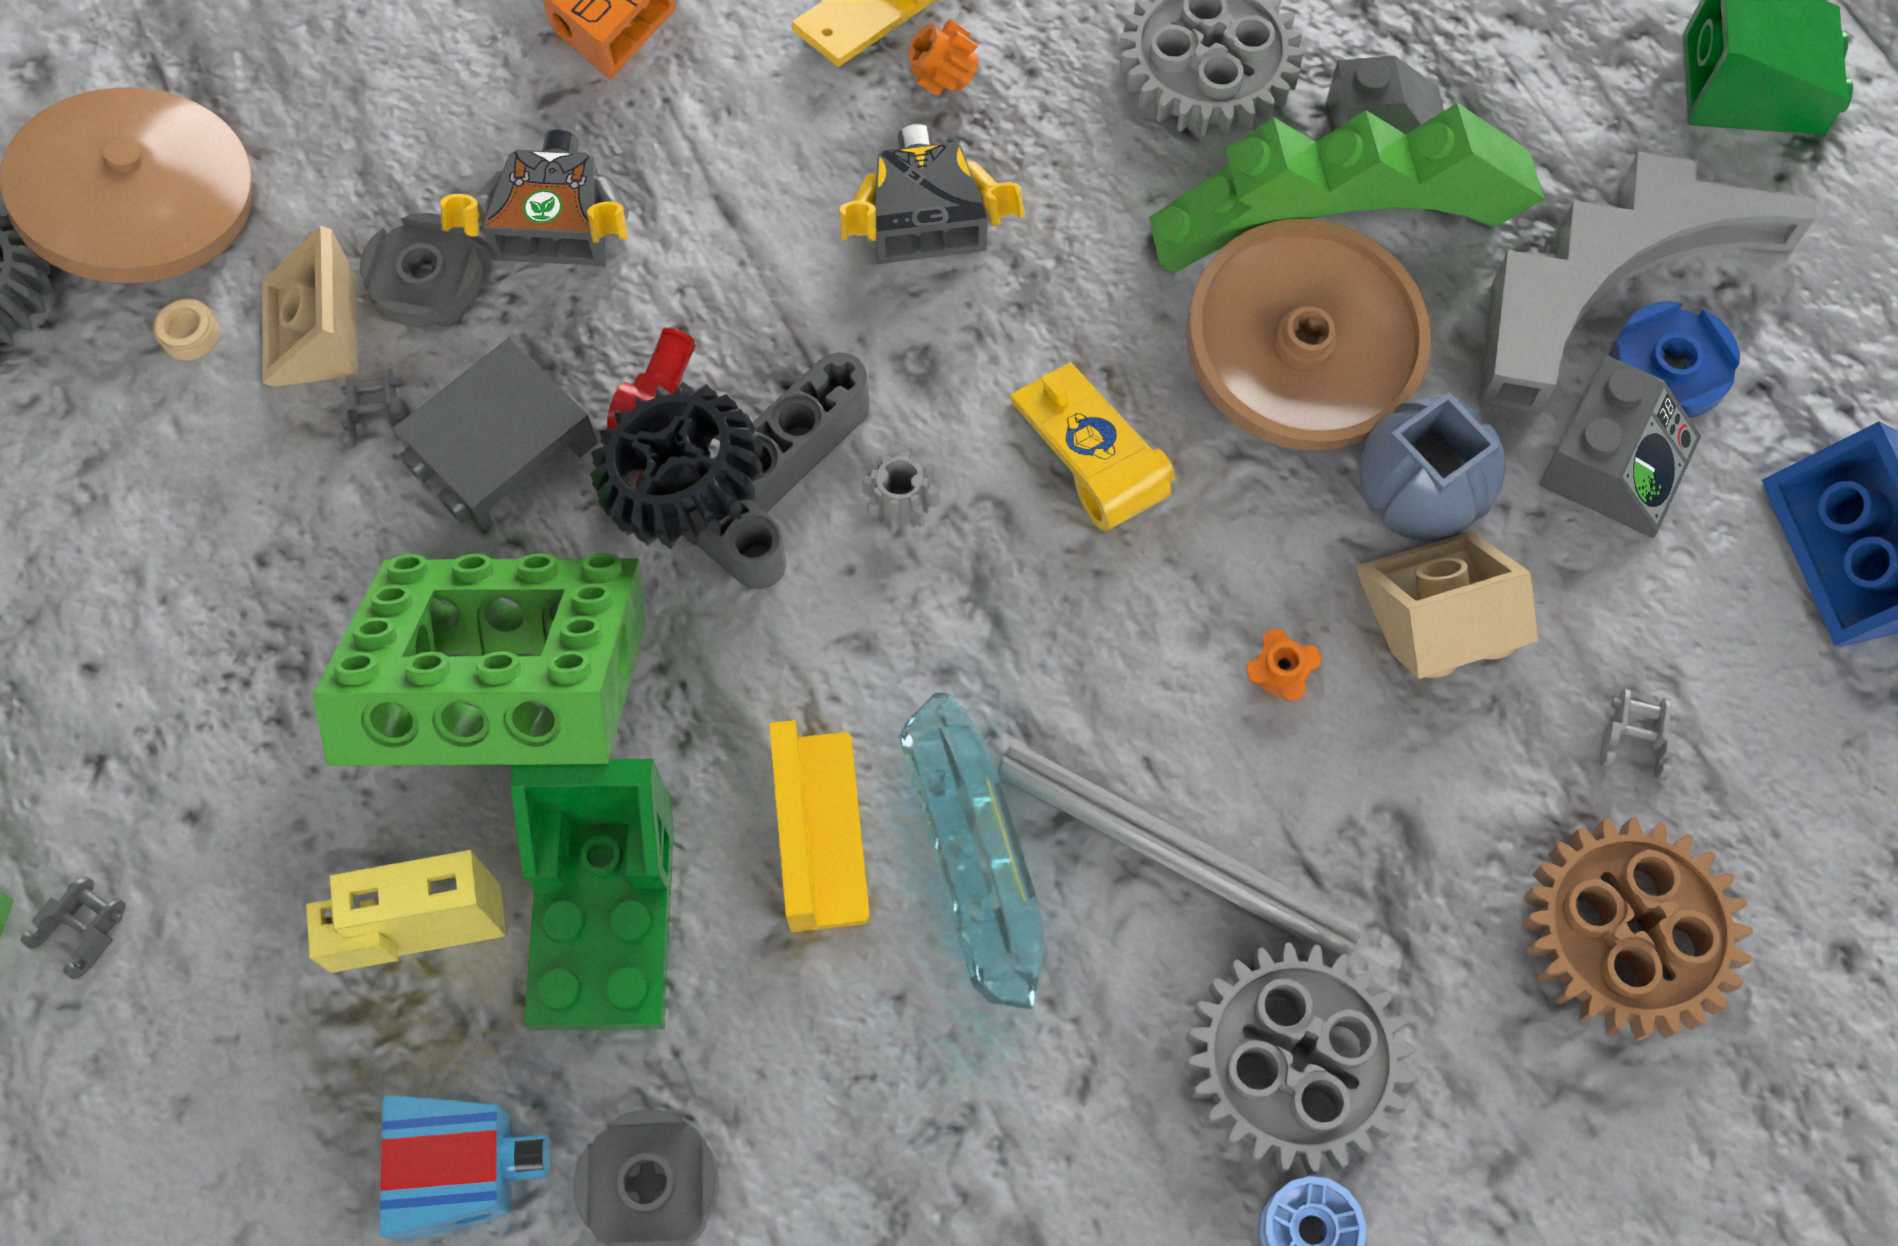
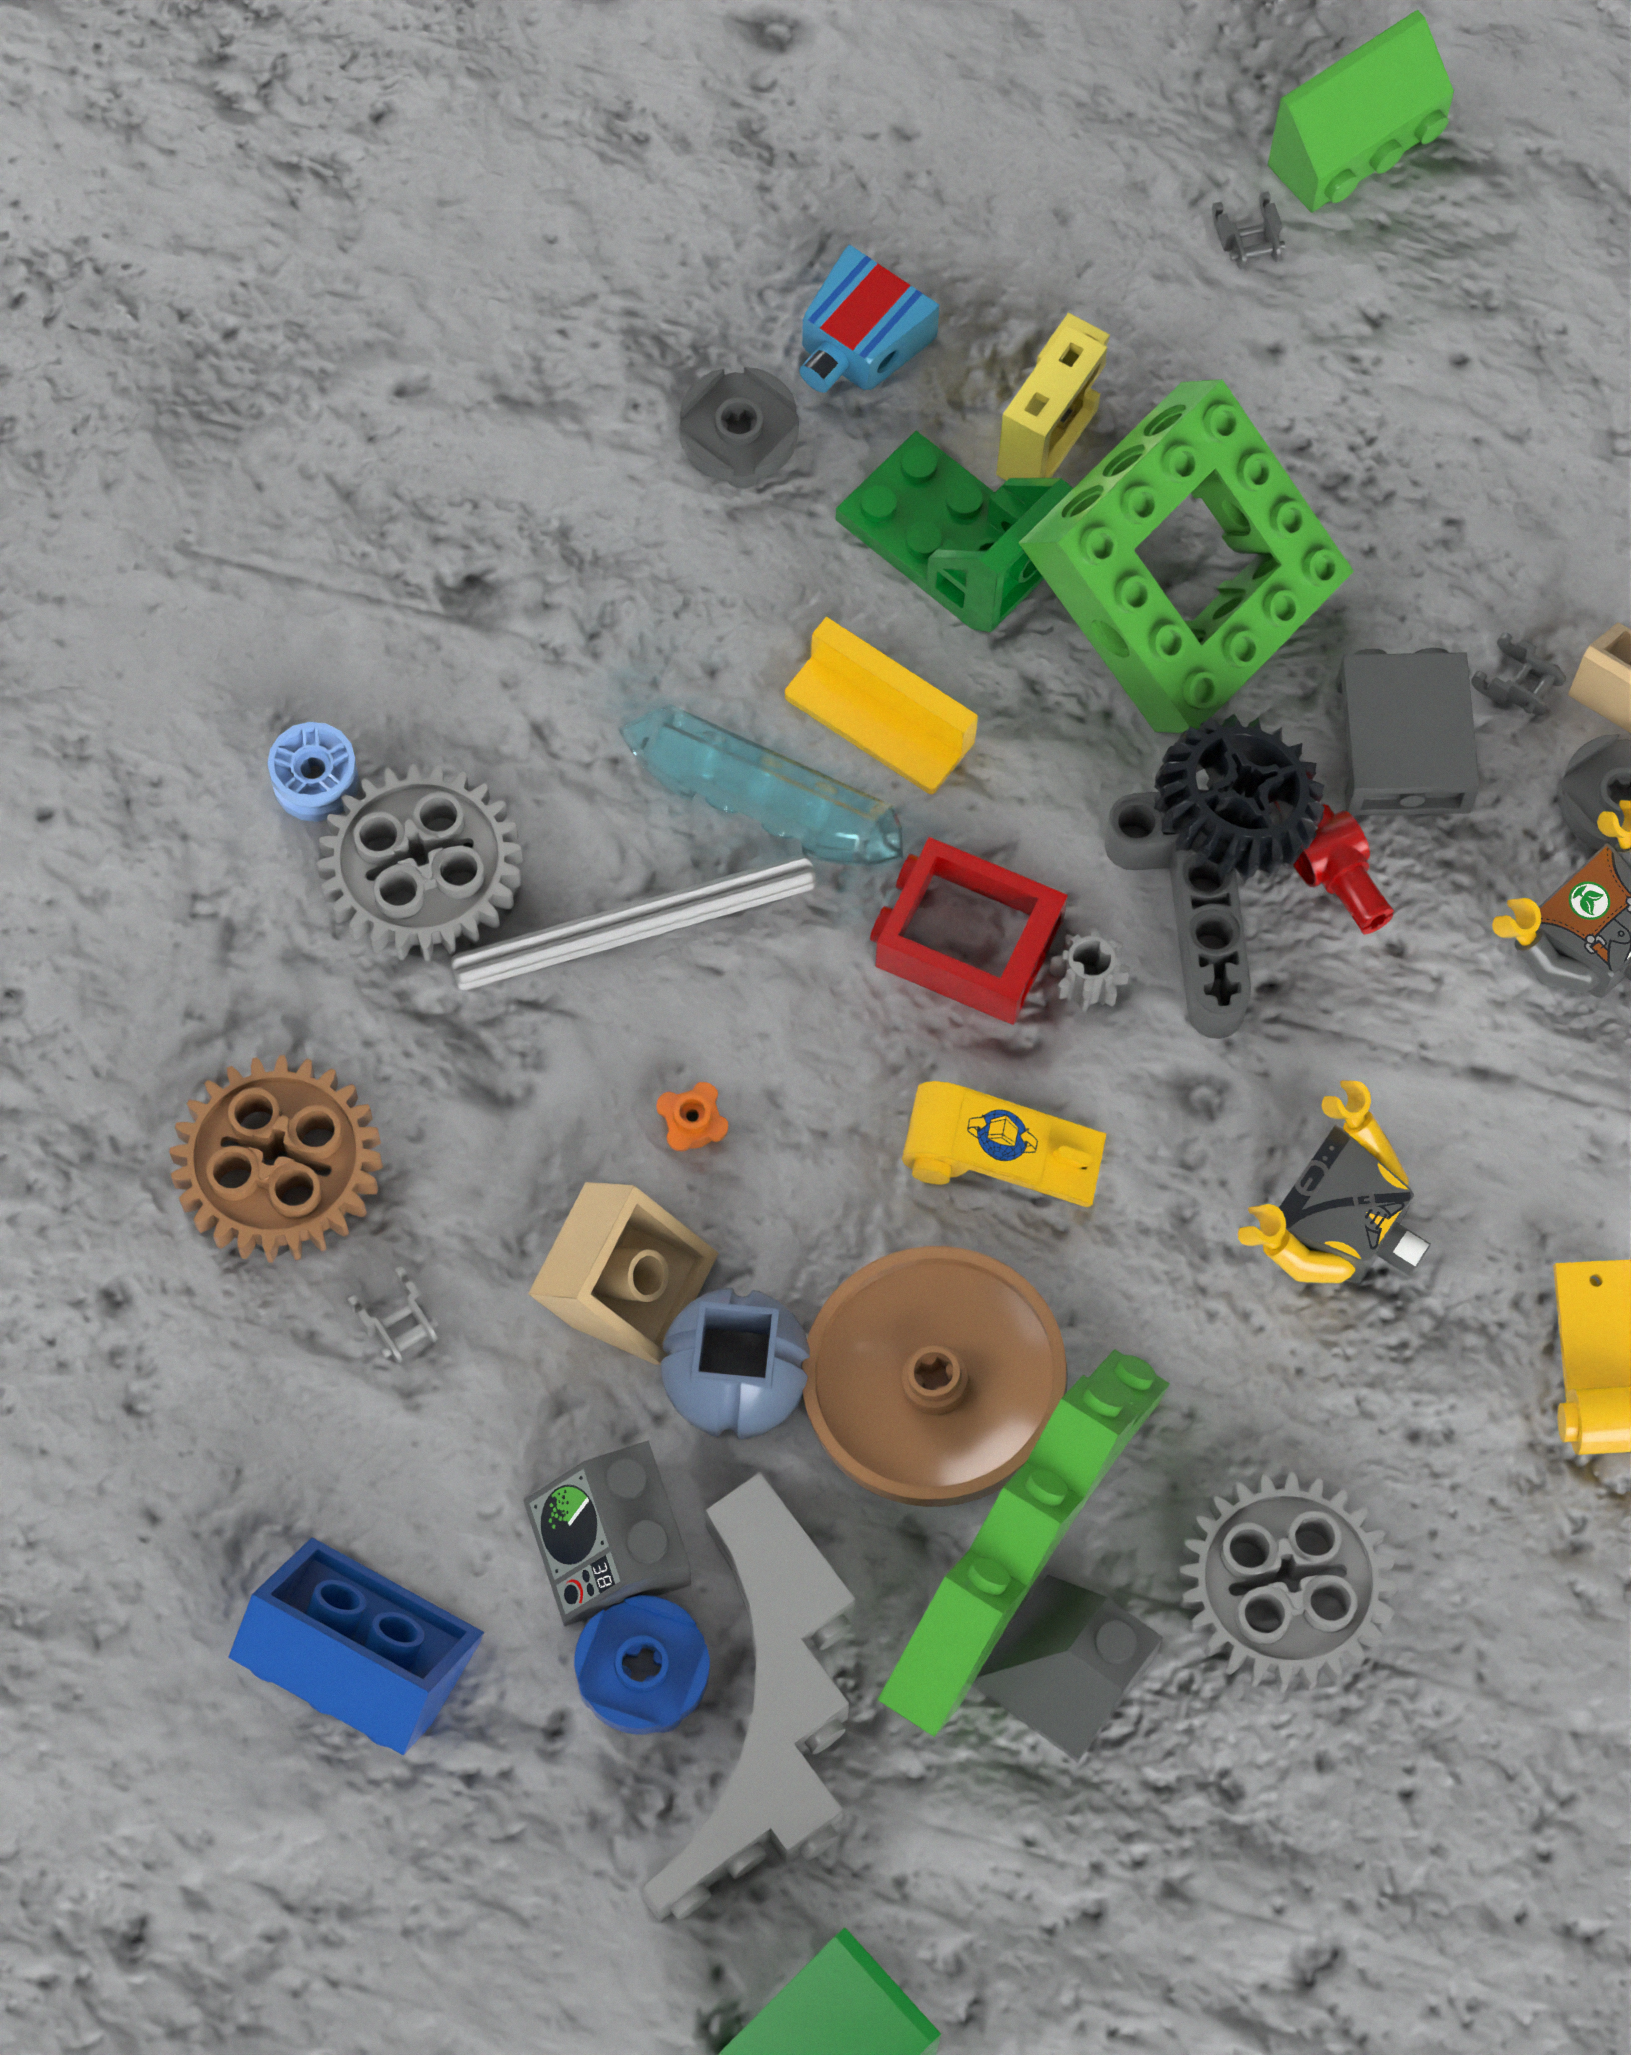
camera: 130 degrees right, 0 degrees up
(936, 540) = (950, 977): none -> red window
(943, 57) = (1479, 1346): orange gear -> none

